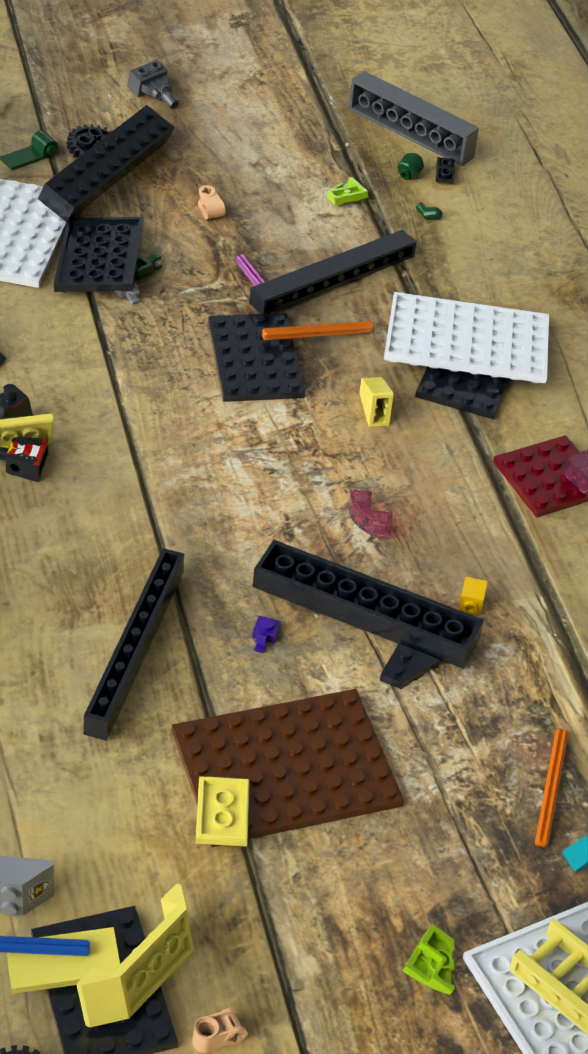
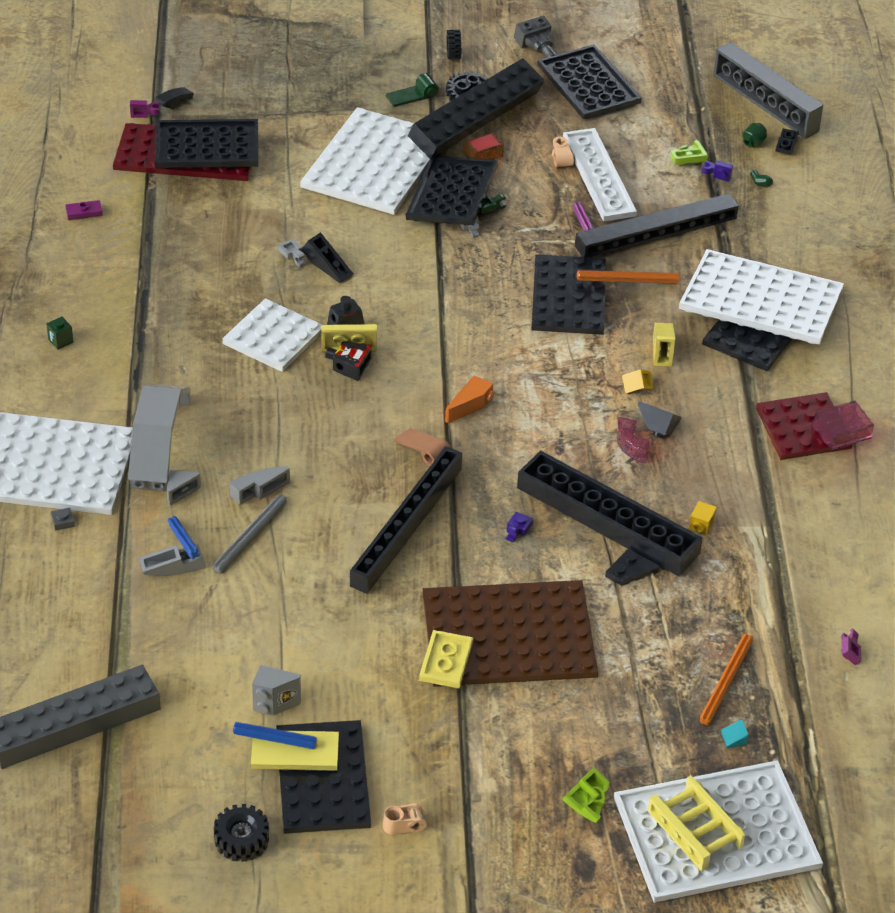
camera: 15 degrees right, 0 degrees up
(65, 97) = (453, 44): none -> black tyre
(119, 994) = (352, 764): light yellow slope -> none
(124, 204) = (484, 147): none -> clear orange brick
(142, 550) = (428, 445): none -> nougat door
(175, 488) = (470, 399): none -> orange slope
(220, 126) = (589, 81): none -> black plate
(258, 224) = (600, 175): none -> white plate
(358, 446) = (638, 381): none -> yellow panel
(386, 206) = (720, 169): none -> dark purple plate
(393, 487) = (658, 420): none -> slope

